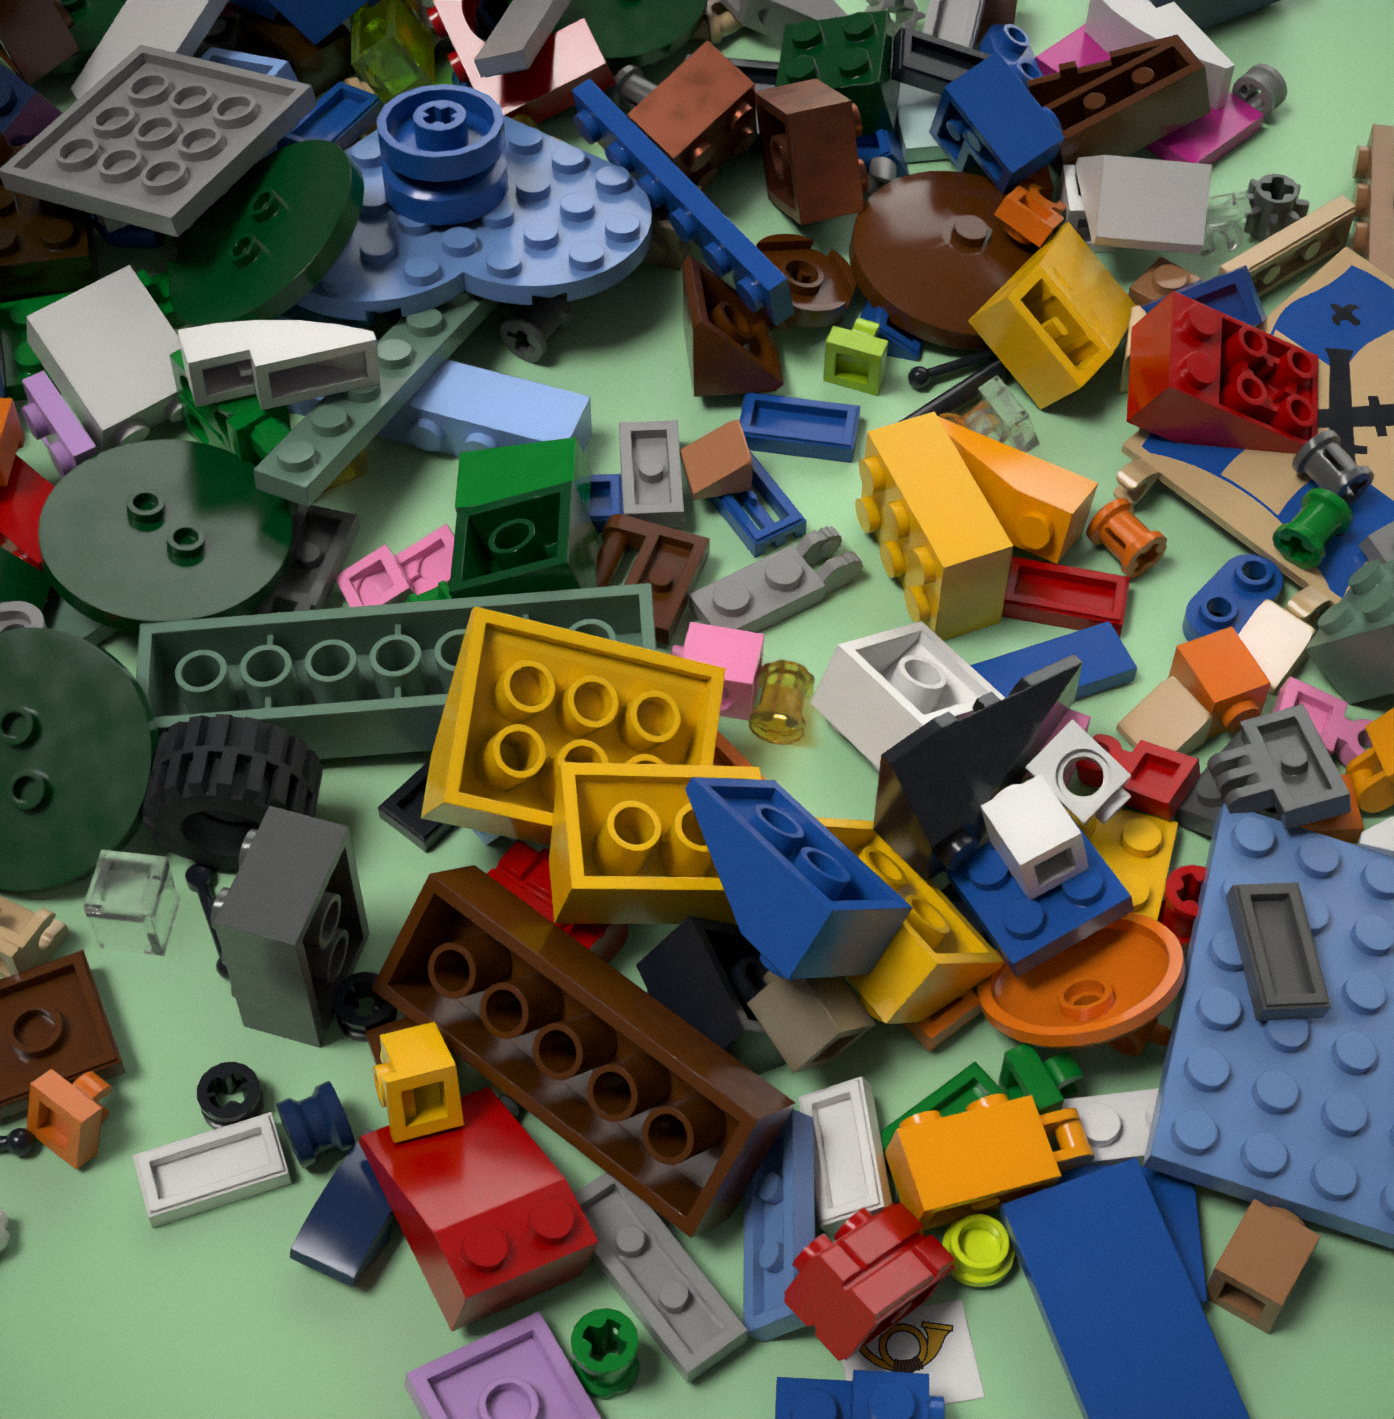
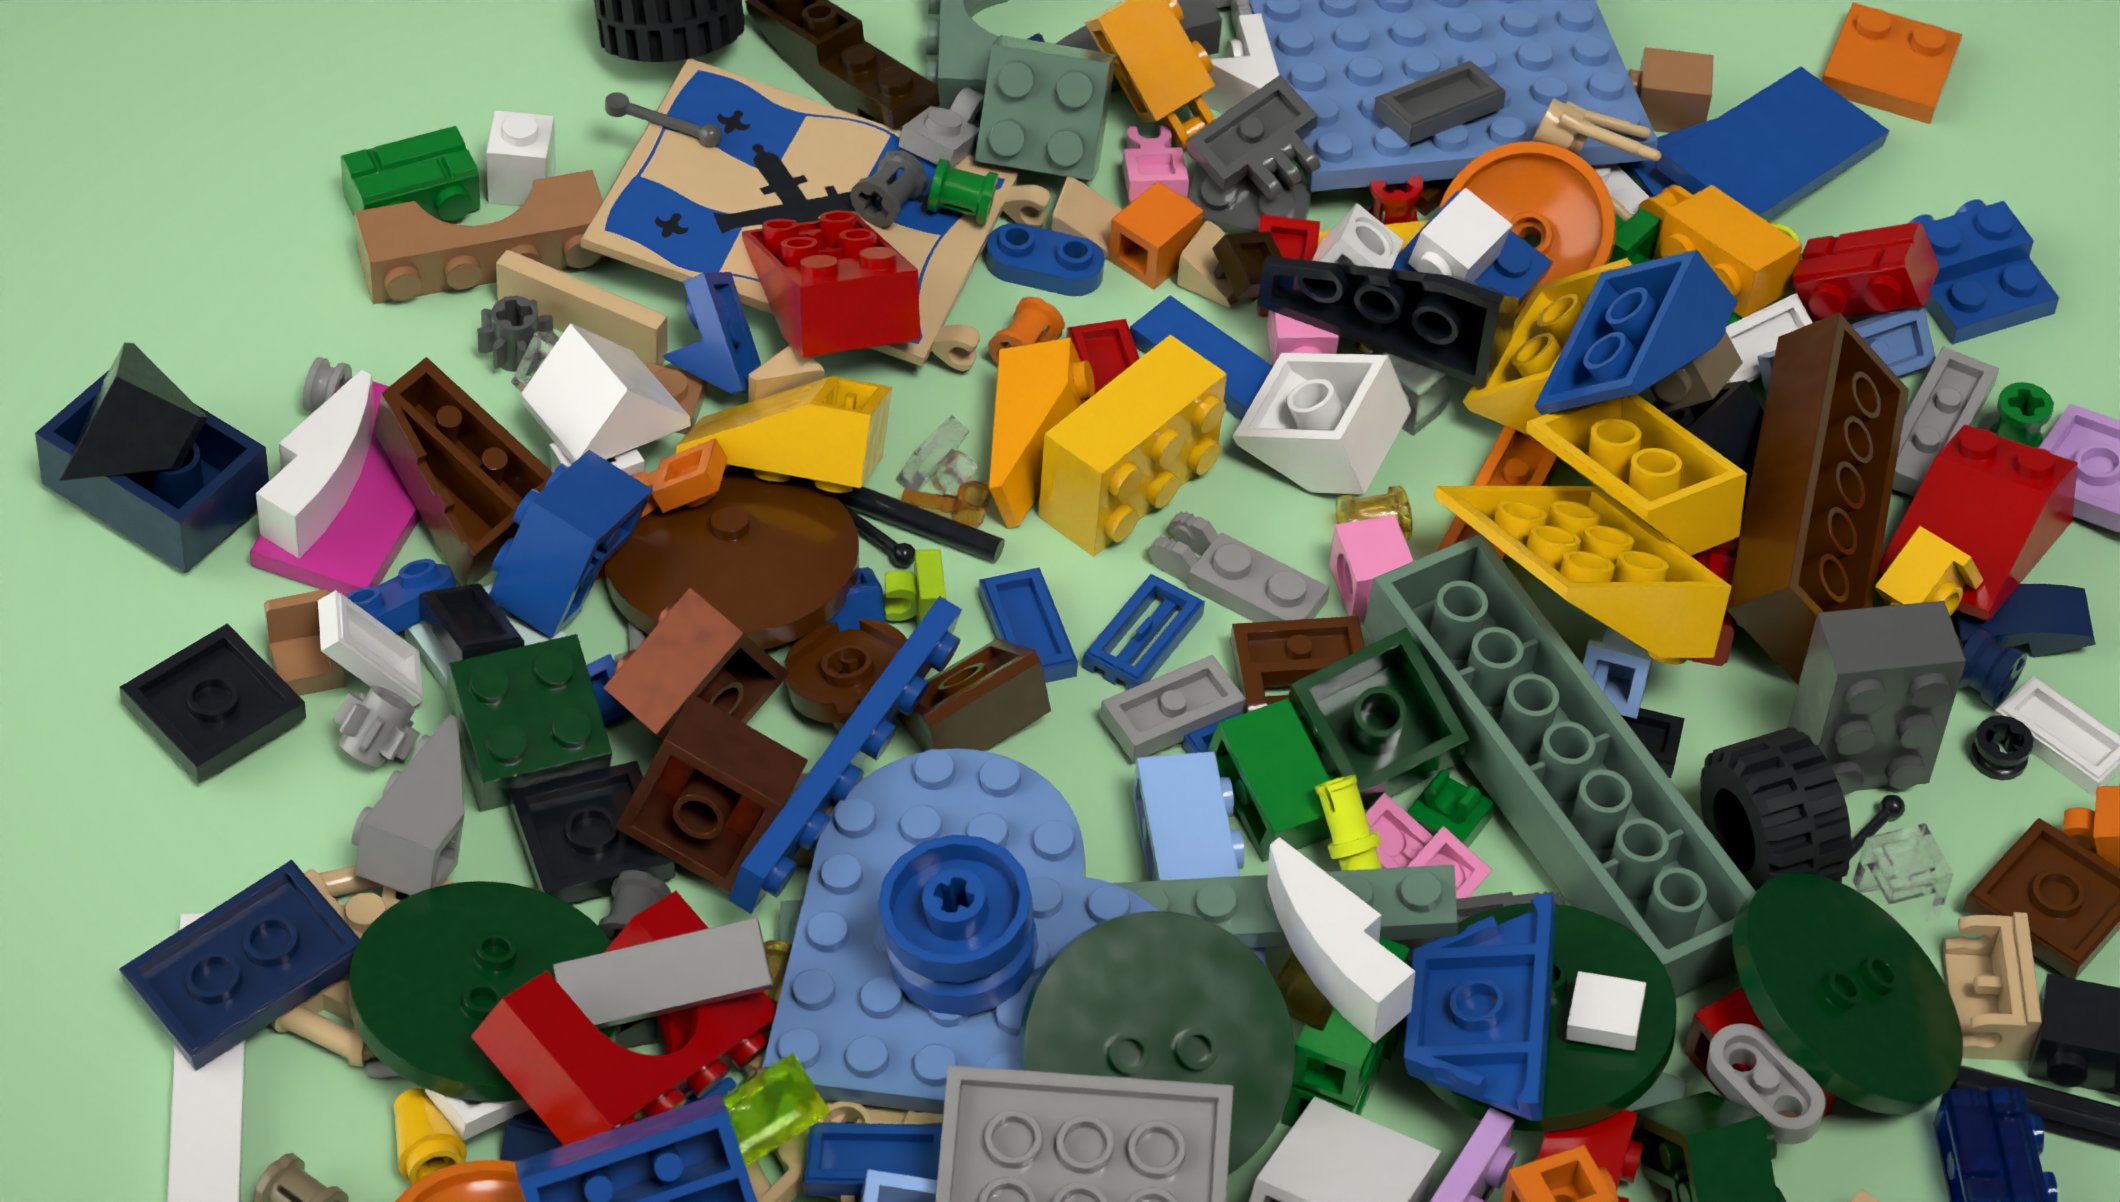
camera: 120 degrees left, 5 degrees down
(113, 545) = (1606, 1011): none -> white tile
(168, 464) = (1486, 1010): none -> blue wing
(420, 504) = (1348, 825): none -> neon yellow pin
(718, 462) = (1140, 641): nougat slope -> none
(1125, 713) = (1242, 262): none -> dark brown tile
(1171, 1031) = (1571, 125): none -> tan plant

